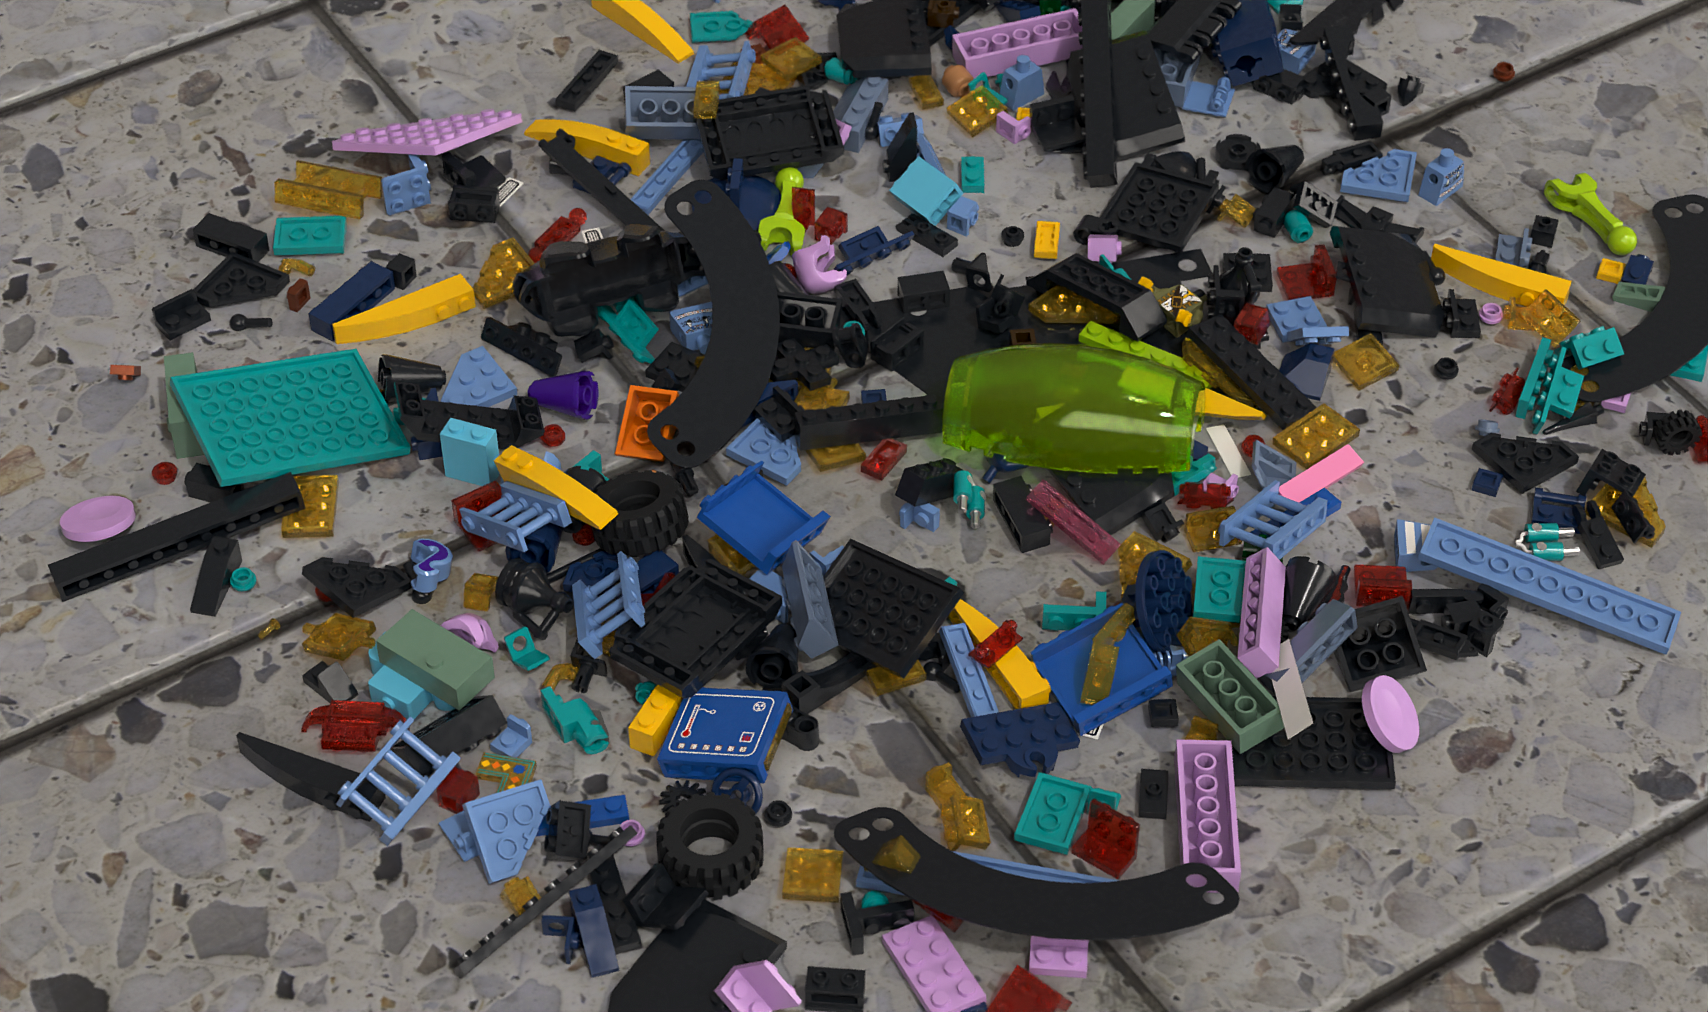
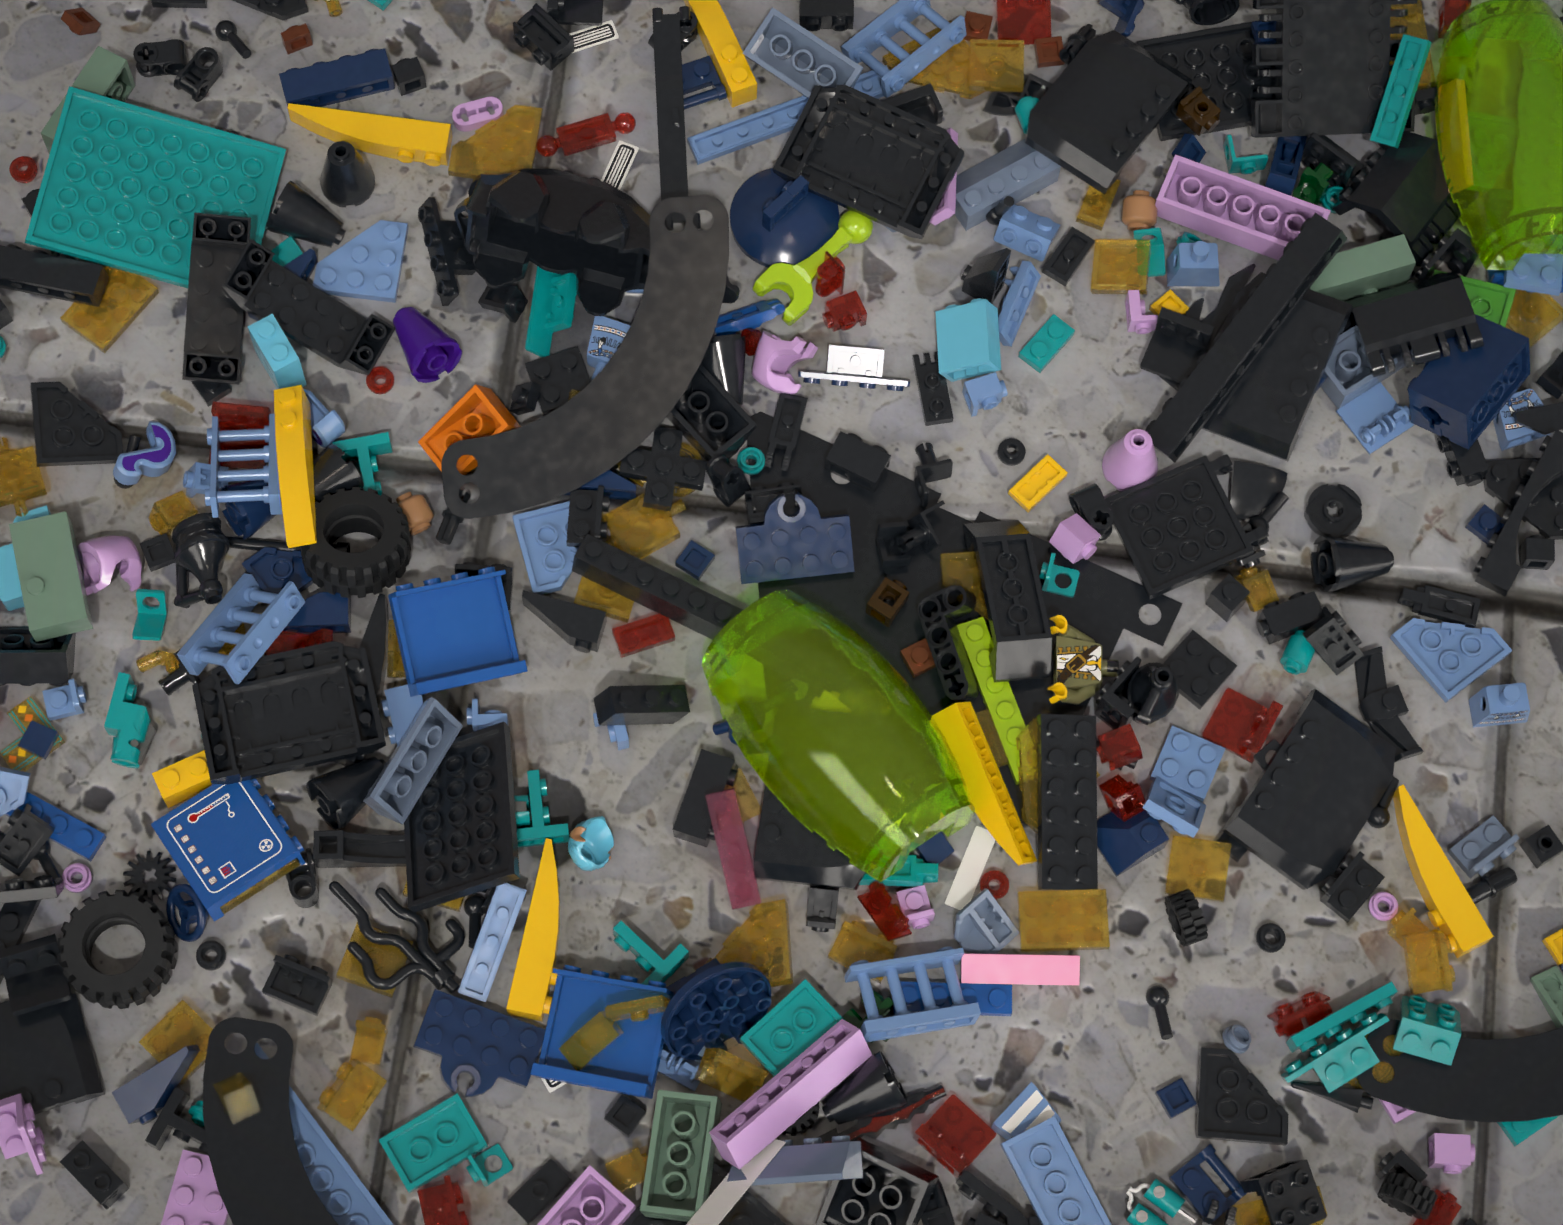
camera: 35 degrees right, 25 degrees up
(212, 355) = (162, 58): none -> black piece
(245, 347) = (196, 78): none -> black piece
(388, 447) = (212, 315): none -> black slope
(412, 335) = (346, 176): none -> black cone
(433, 509) = (211, 391): none -> black plate
(470, 265) = (476, 113): none -> lavender beam
(485, 555) = (198, 479): none -> medium blue bracket
(495, 615) = (158, 552): none -> black plate
(518, 769) = (38, 740): none -> dark blue tile
(706, 99) = (836, 80): clear yellow plate -> none
(815, 40) = (1048, 51): none -> copper plate
(822, 913) = (151, 1090): none -> dark blue slope
(824, 480) = (572, 622): none -> black slope
(829, 26) = (1077, 42): none -> black axle
(859, 785) = (297, 984): none -> black bracket
(897, 739) = (386, 960): none -> clear yellow plate
(926, 713) = (423, 963): none -> black plant
(930, 350) = (794, 544): none -> dark blue plate
(938, 125) = (1068, 256): none -> black plate
(969, 497) = (672, 743): teal piece -> none
(975, 583) = (591, 843): none -> medium azure hair
(997, 644) = (531, 936): clear red hinge -> none
(1000, 19) = (1242, 165): none -> teal bracket
(1070, 328) = (953, 645): none -> black beam
(1092, 188) = (1130, 460): none -> lavender cone
(1226, 223) = (1227, 597): none -> black brick
(1282, 350) = (1122, 797): none -> clear red brick
(1330, 110) = (1485, 524): none -> dark blue plate
(1385, 392) = (1186, 917): none -> black tyre
(1417, 441) = (1158, 998): none -> black bar
(1672, 398) = (1450, 1152): none -> lavender brick

